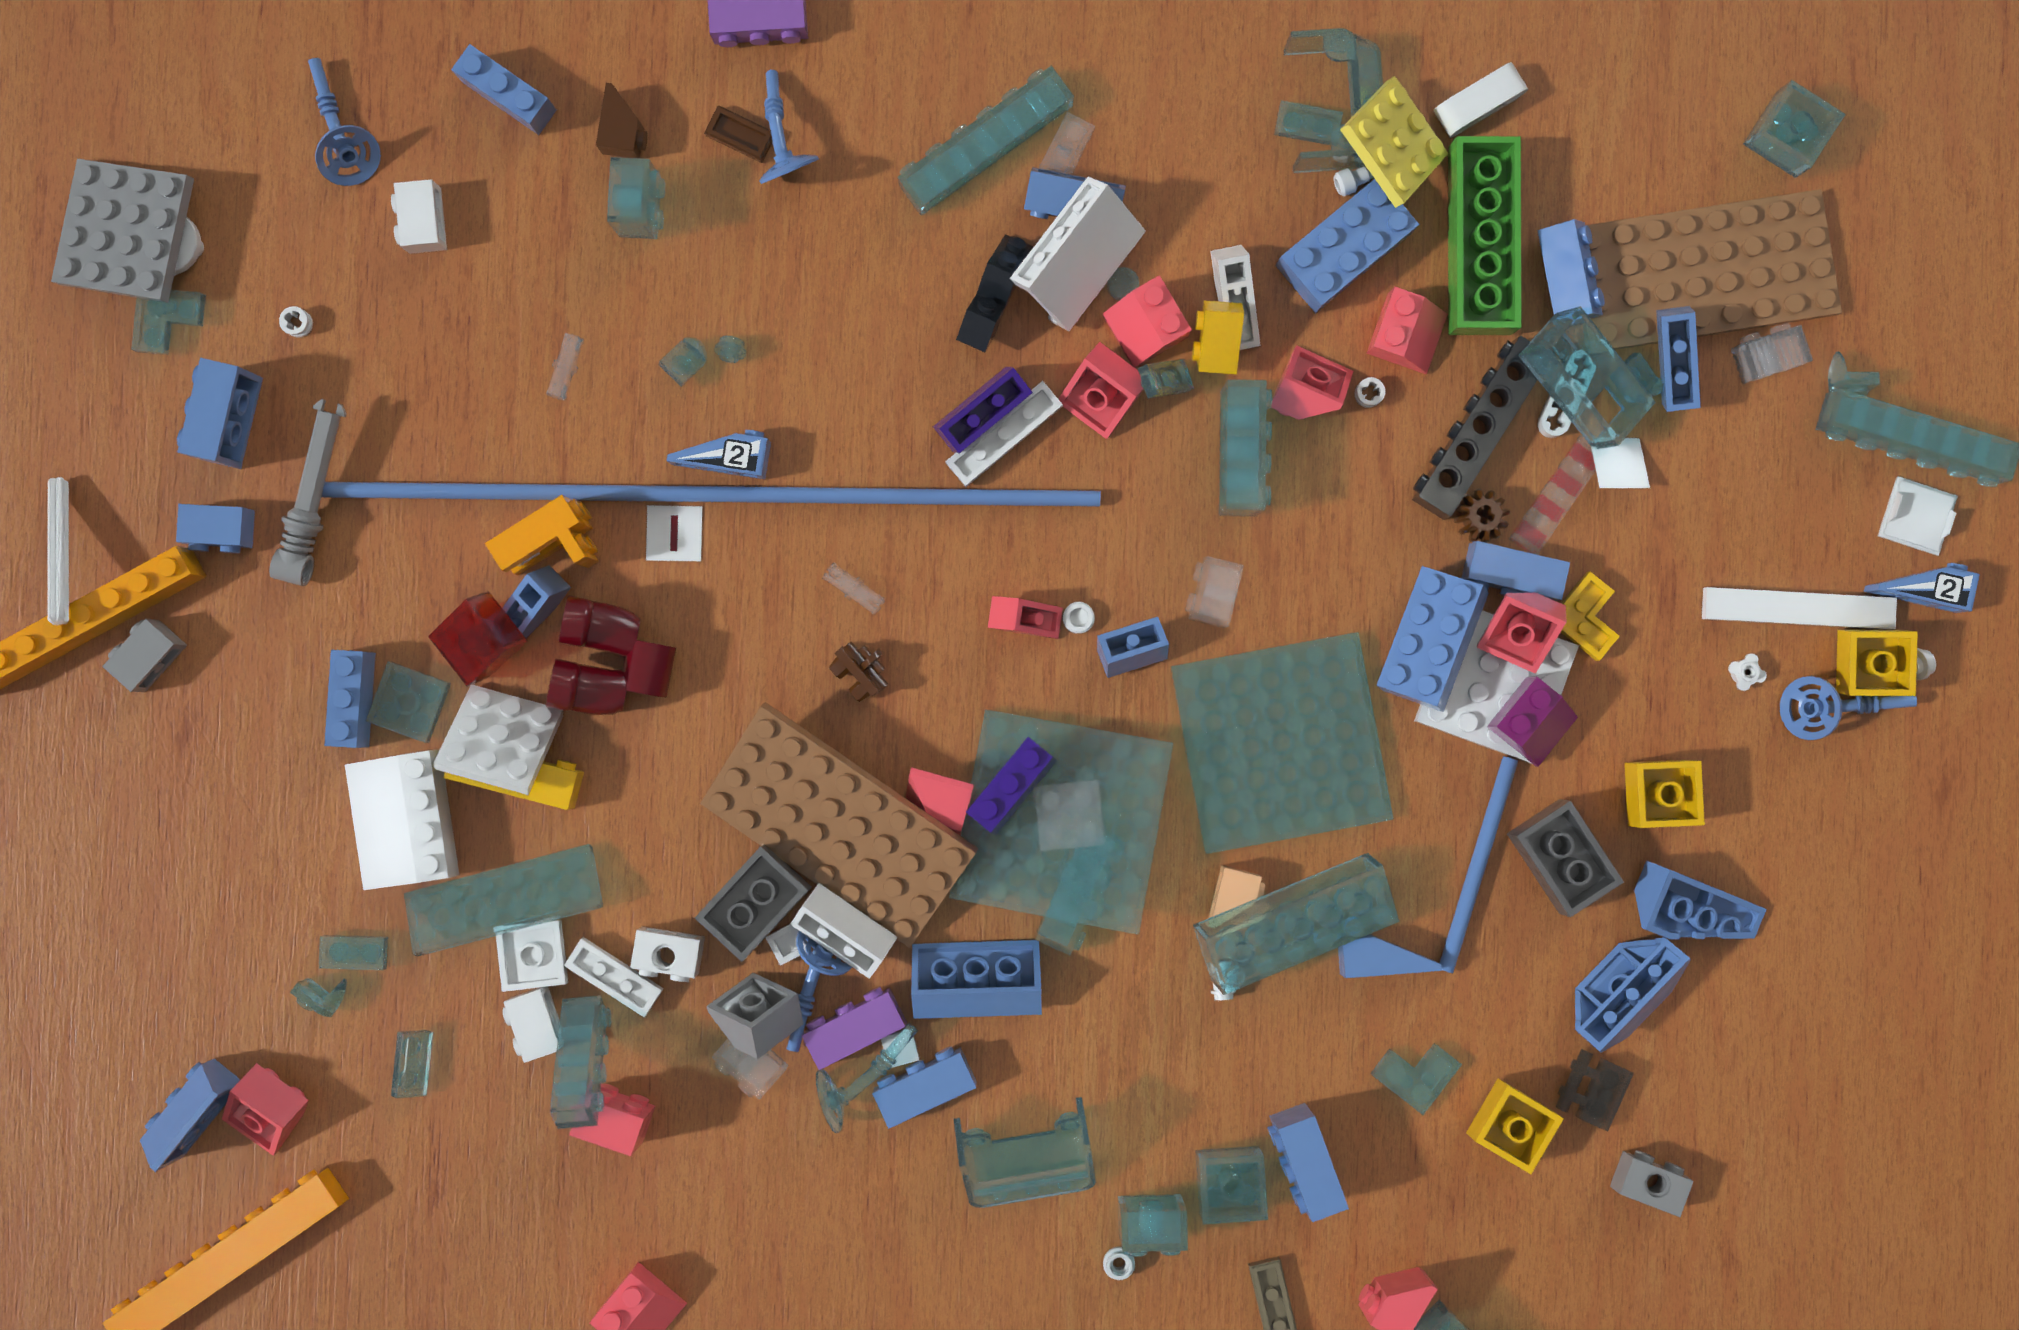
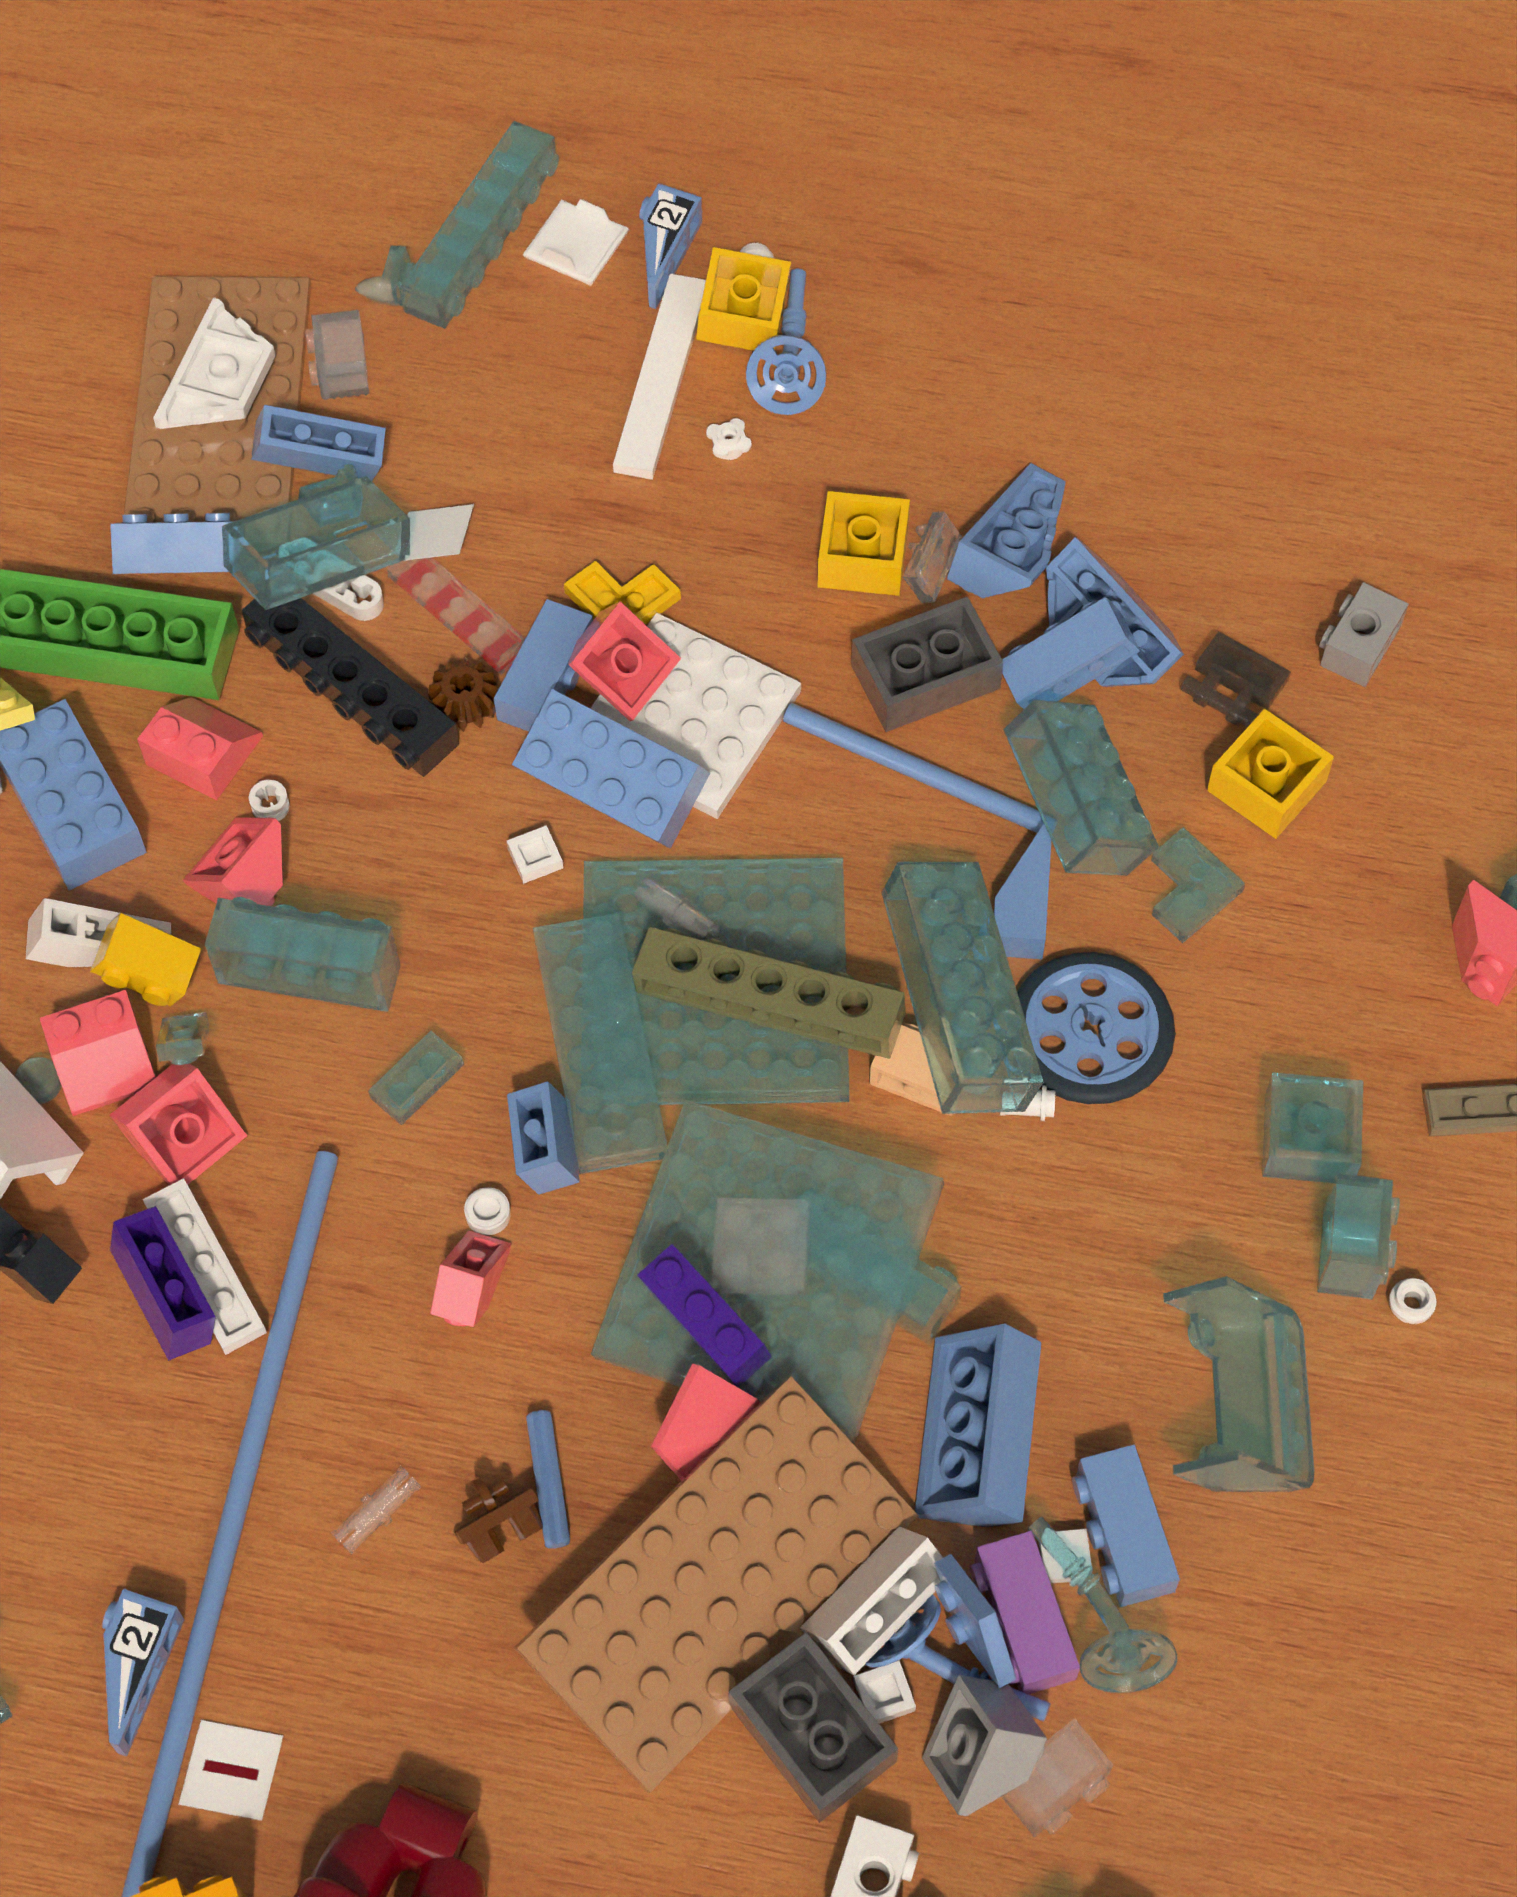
camera: 75 degrees left, 25 degrees down
(838, 993) = (973, 1620): none -> medium blue plate
(895, 697) = (548, 1479): none -> medium blue axle
(1167, 547) = (416, 1077): none -> clear light blue plate
(1213, 672) = (600, 1043): none -> clear light blue plate
(1214, 592) = (491, 1026): clear brick -> none
(1246, 867) = (784, 1009): none -> olive brick
(1291, 1061) = (1123, 983): none -> medium blue wedge
(1307, 1163) = (1290, 1024): medium blue brick -> none
(1323, 708) = (676, 910): none -> clear pin
(1358, 595) = (534, 854): none -> white plate
(1475, 987) = (1080, 788): none -> clear light blue brick
(1533, 720) = (738, 670): magenta slope -> none
(1588, 964) = (1069, 654): none -> medium blue brick
(1664, 846) = (932, 556): none -> clear plate
(1733, 264) = (217, 372): none -> white wing
(1794, 129) = (71, 288): clear light blue brick -> none

